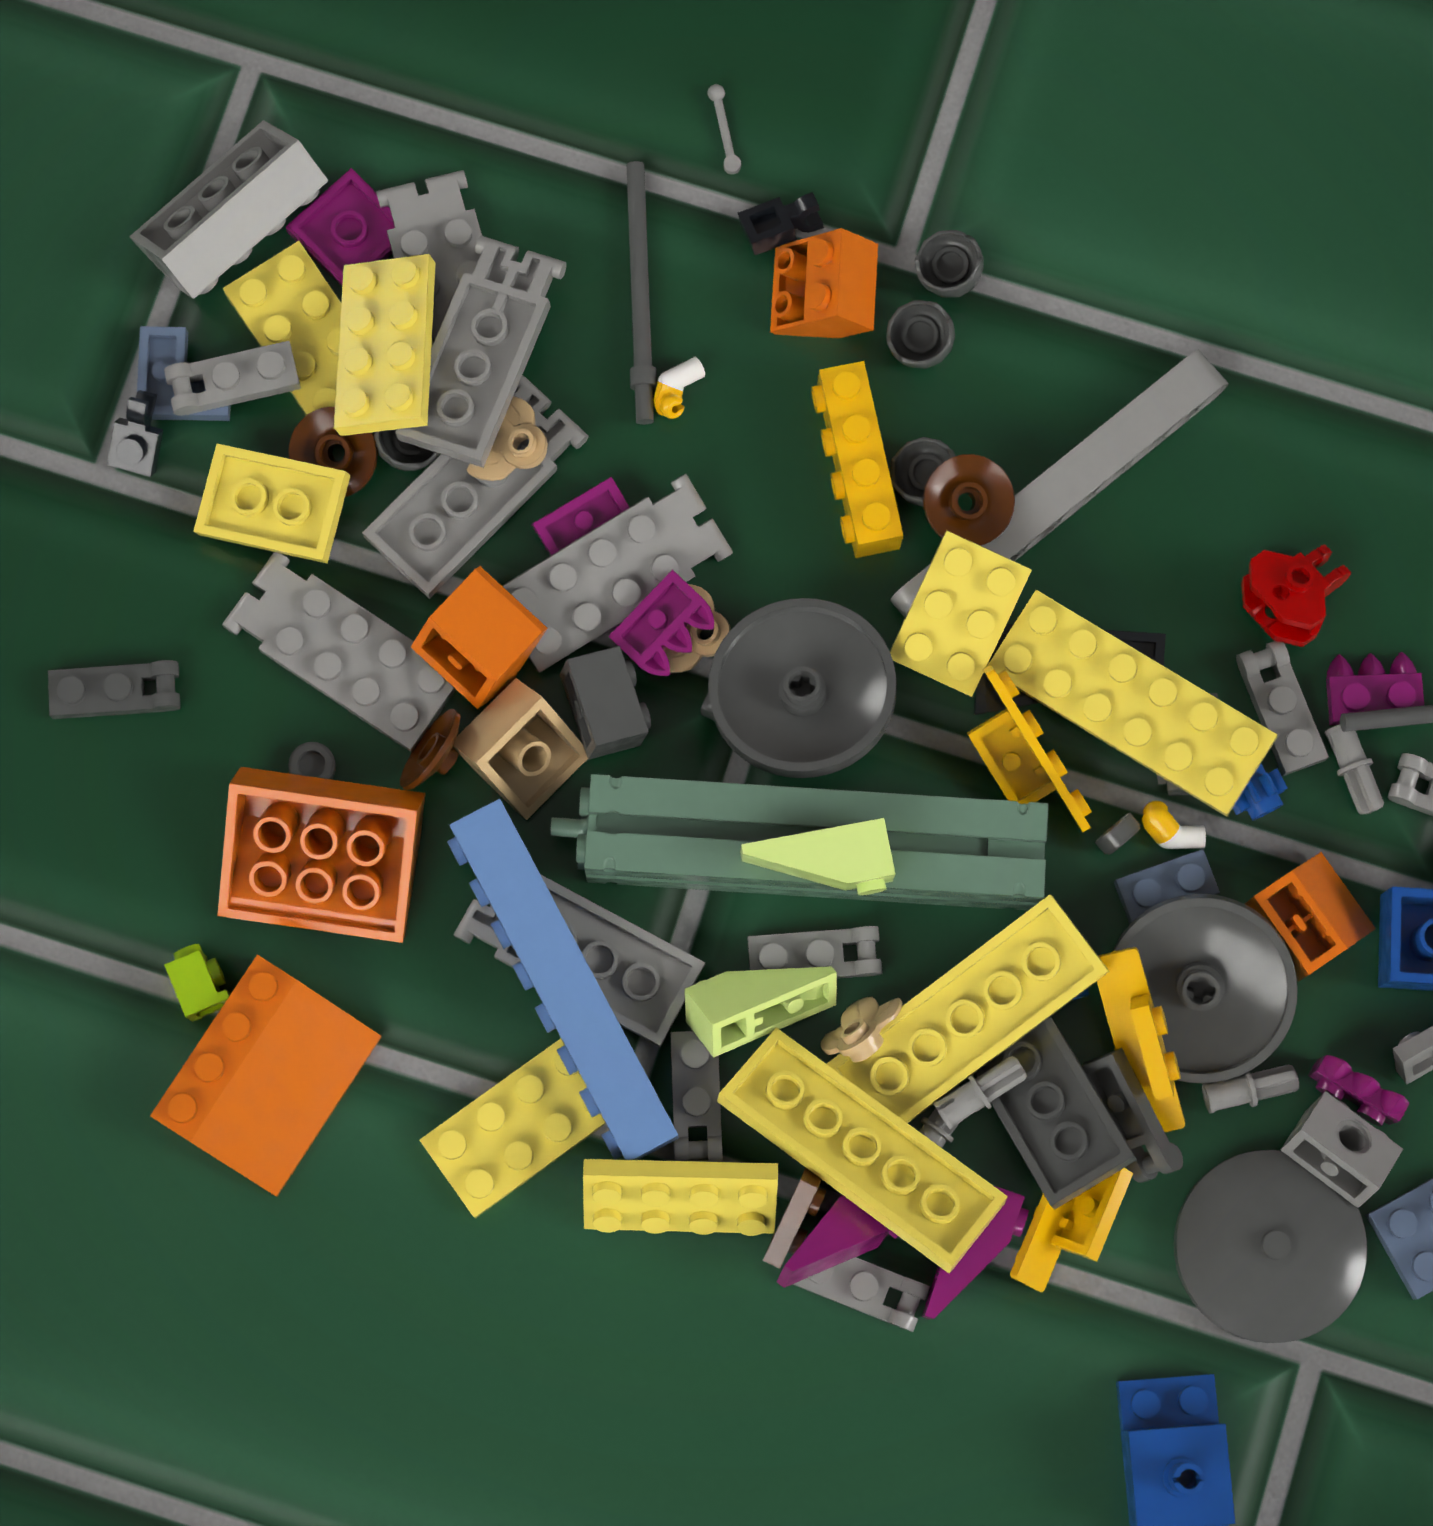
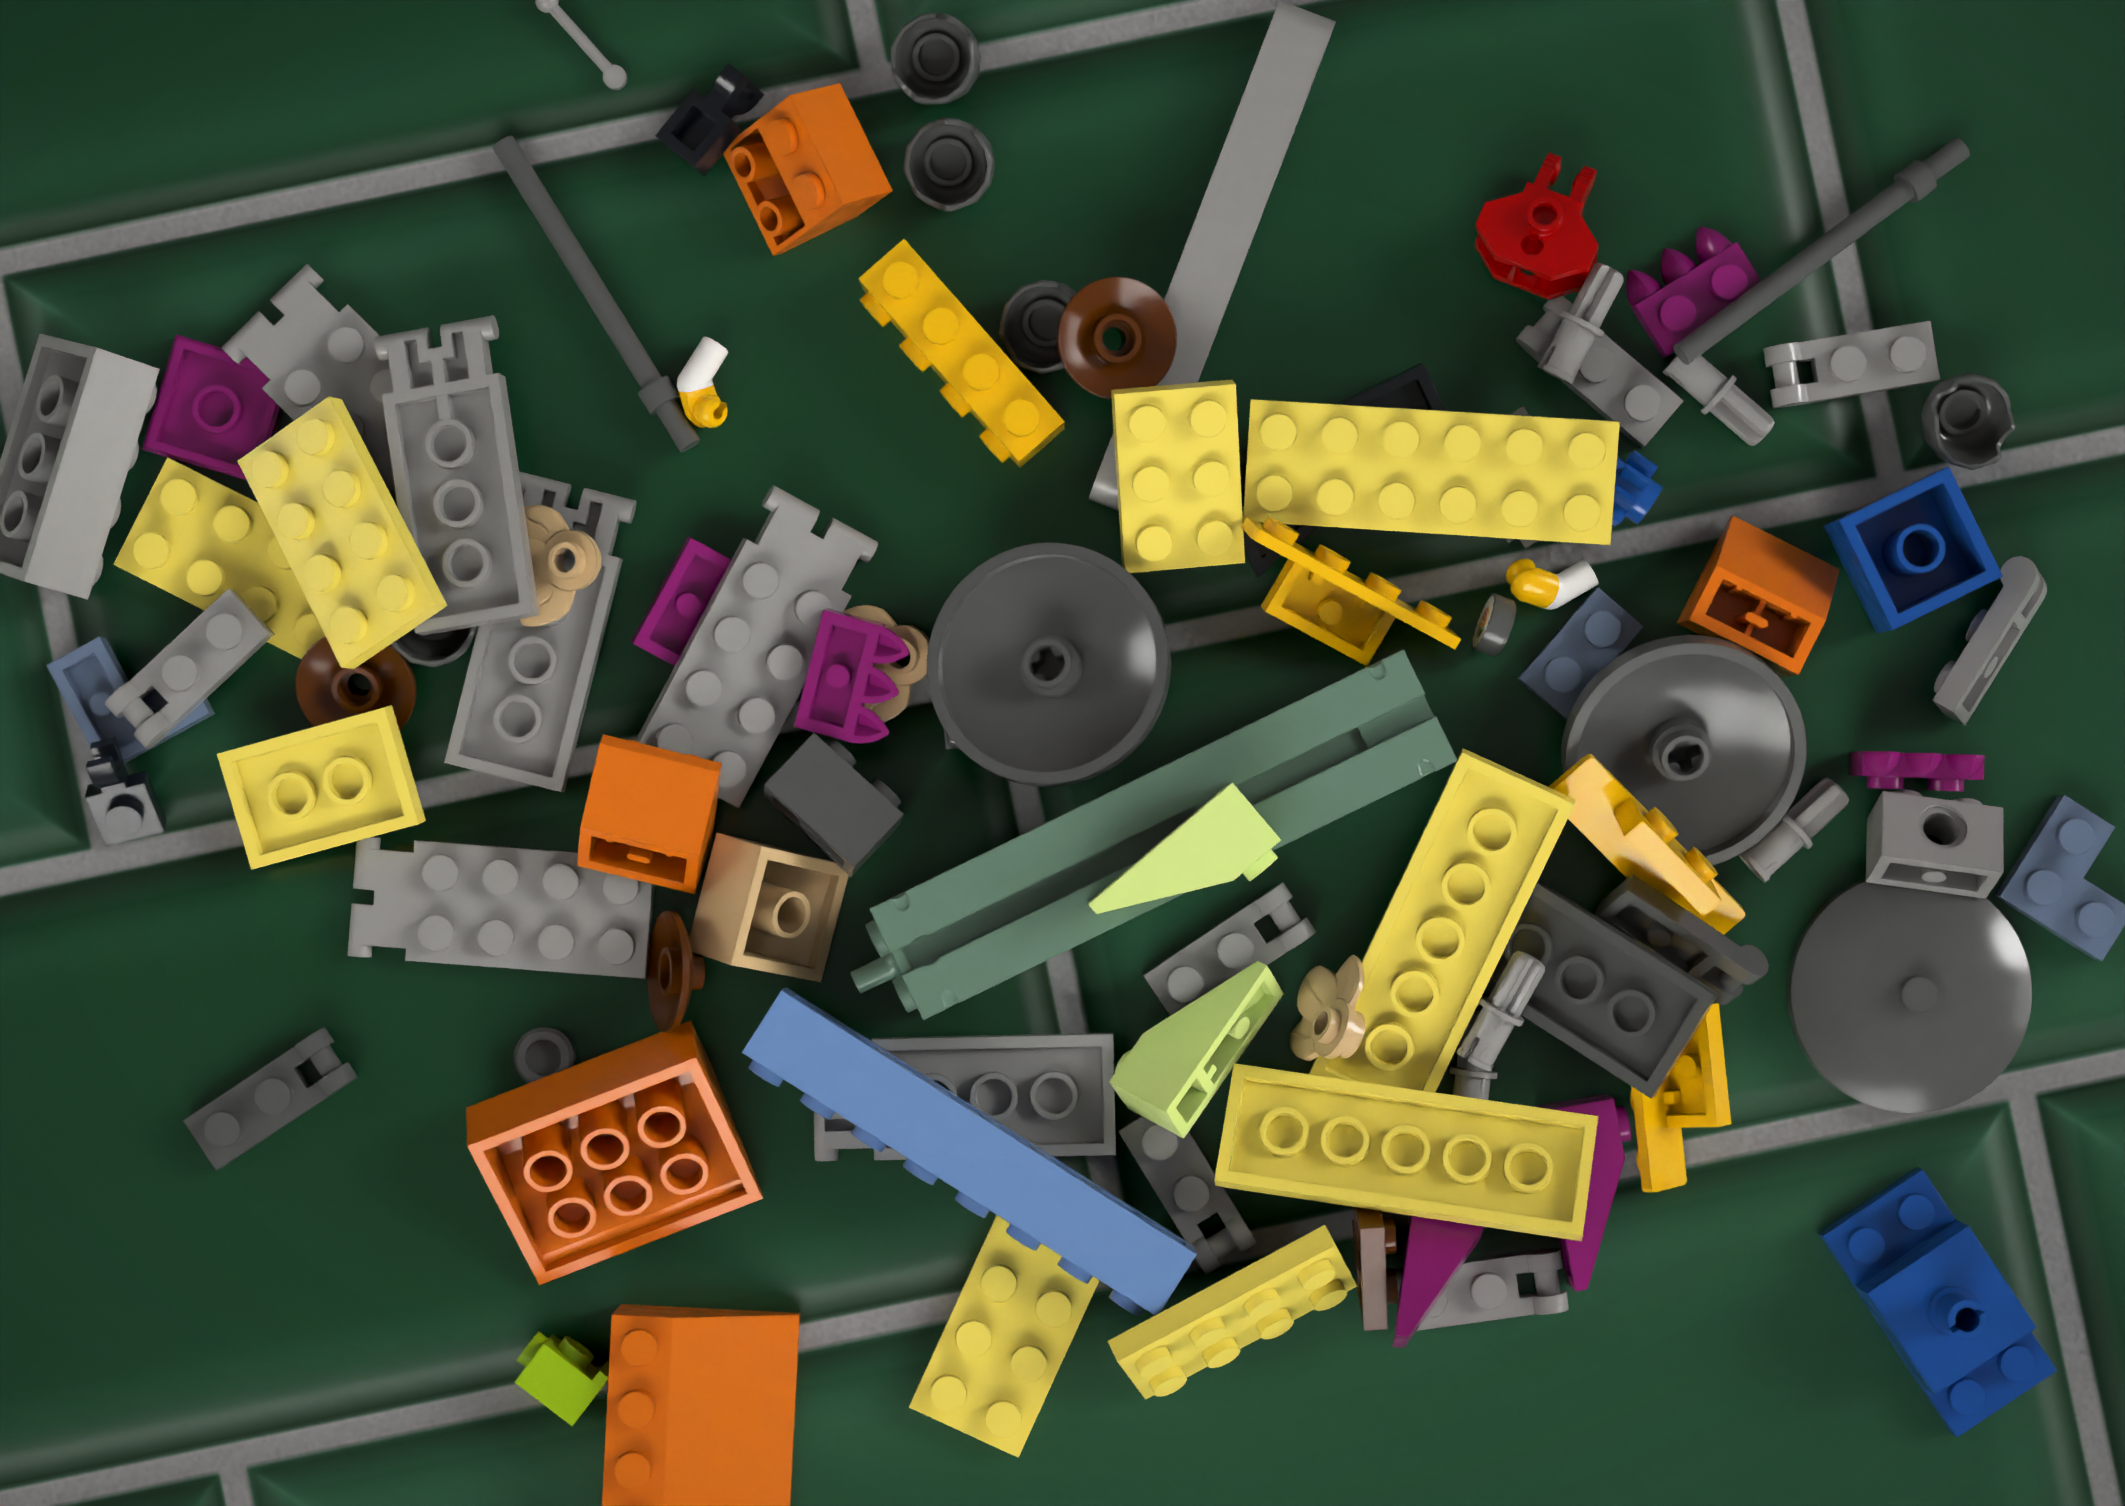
camera: 25 degrees left, 10 degrees up
(1286, 664) = (1581, 323): none -> light grey axle

